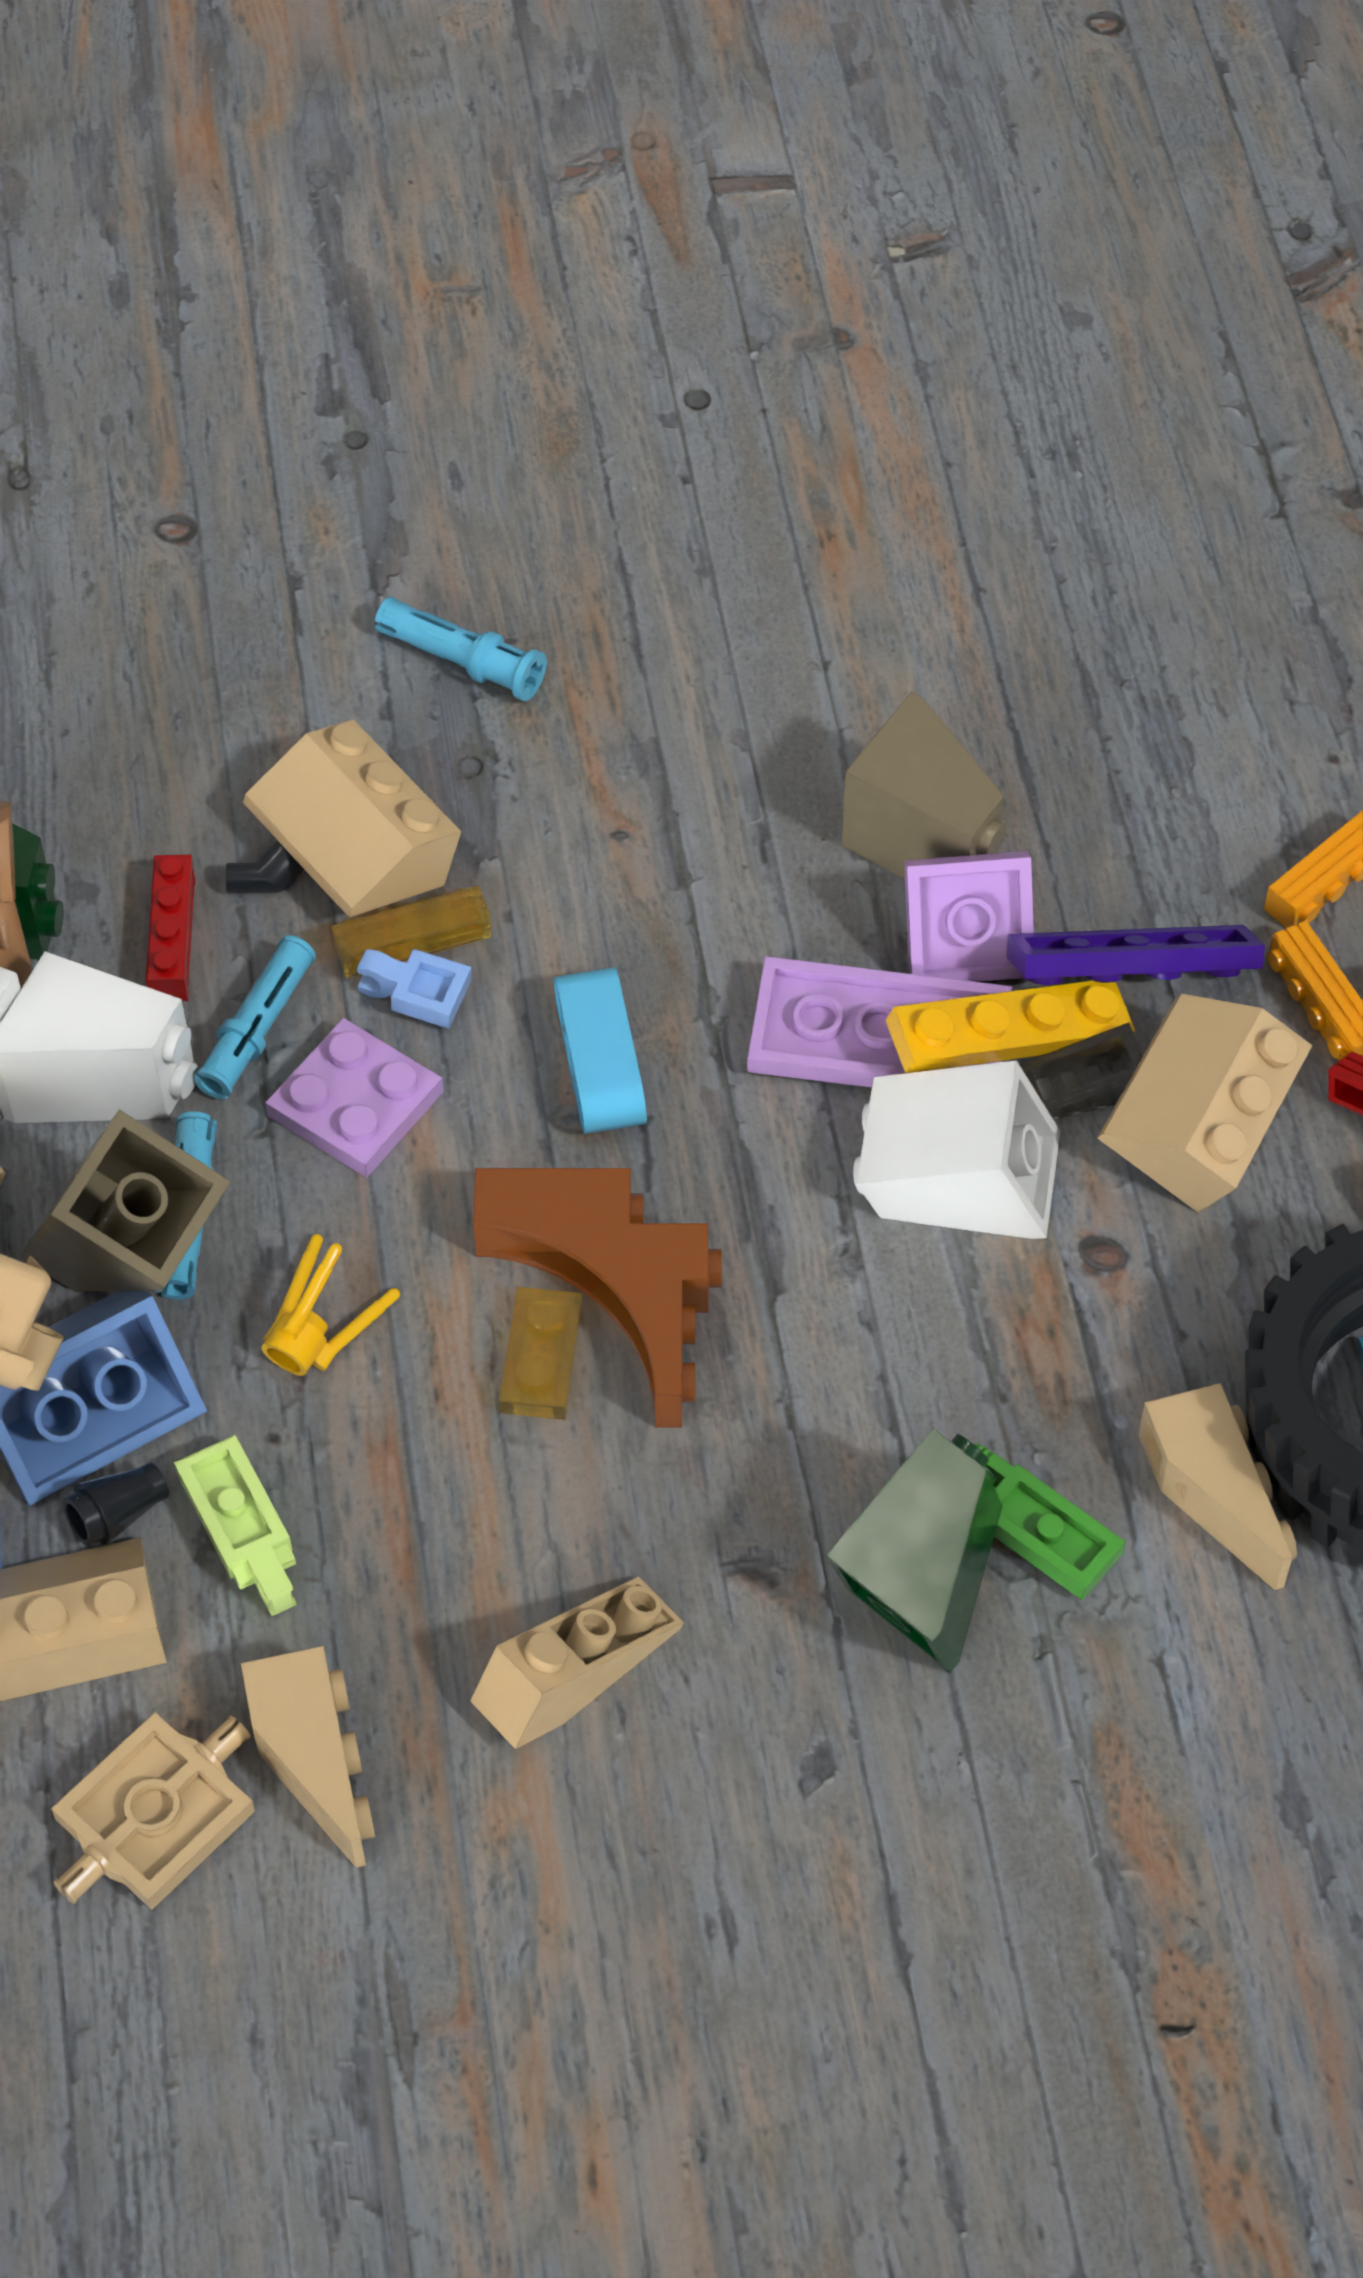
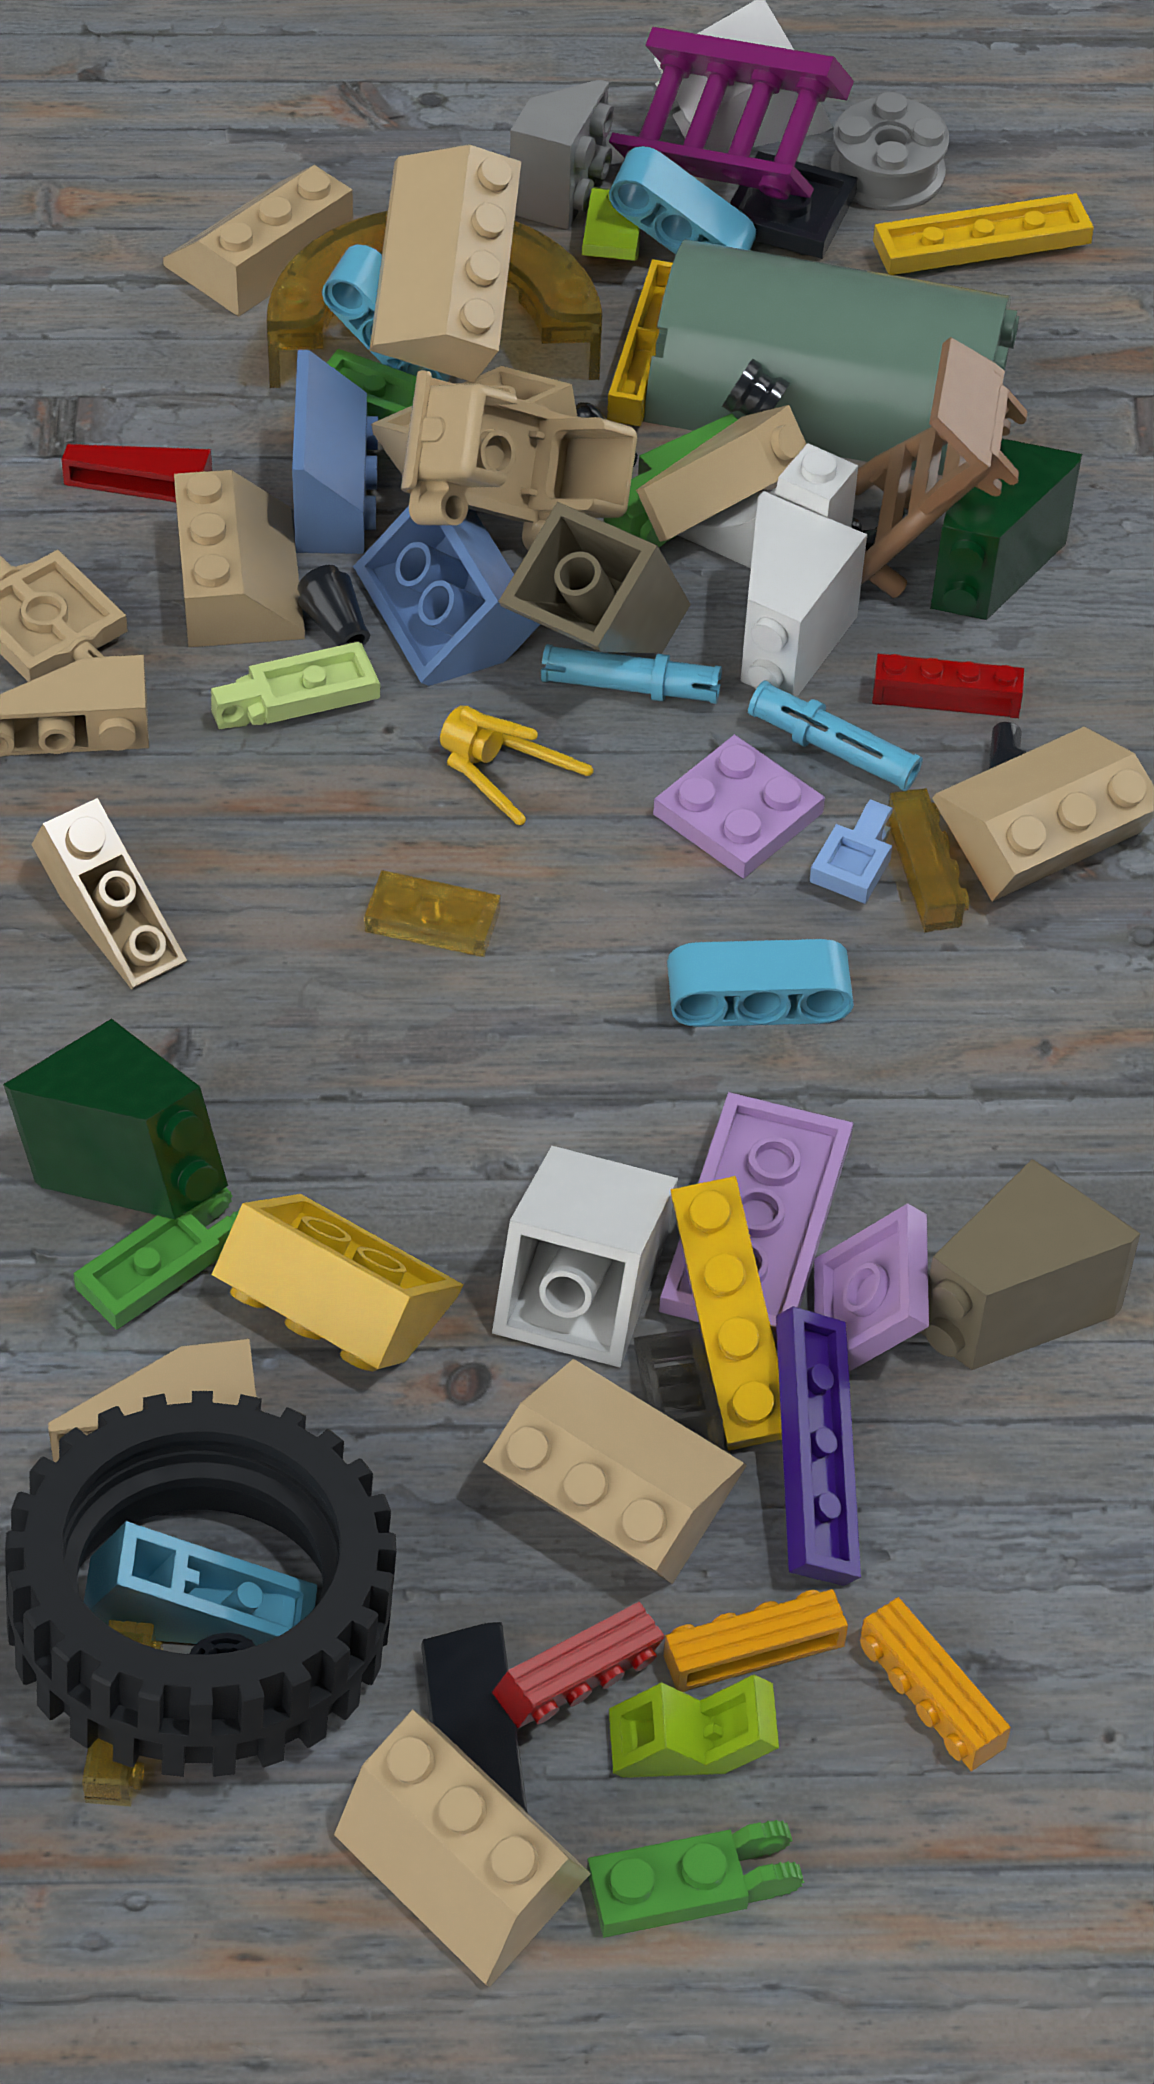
camera: 95 degrees right, 5 degrees down
(595, 1238) = (487, 982): dark orange arch -> none
(1033, 1358) = (333, 1280): none -> yellow slope

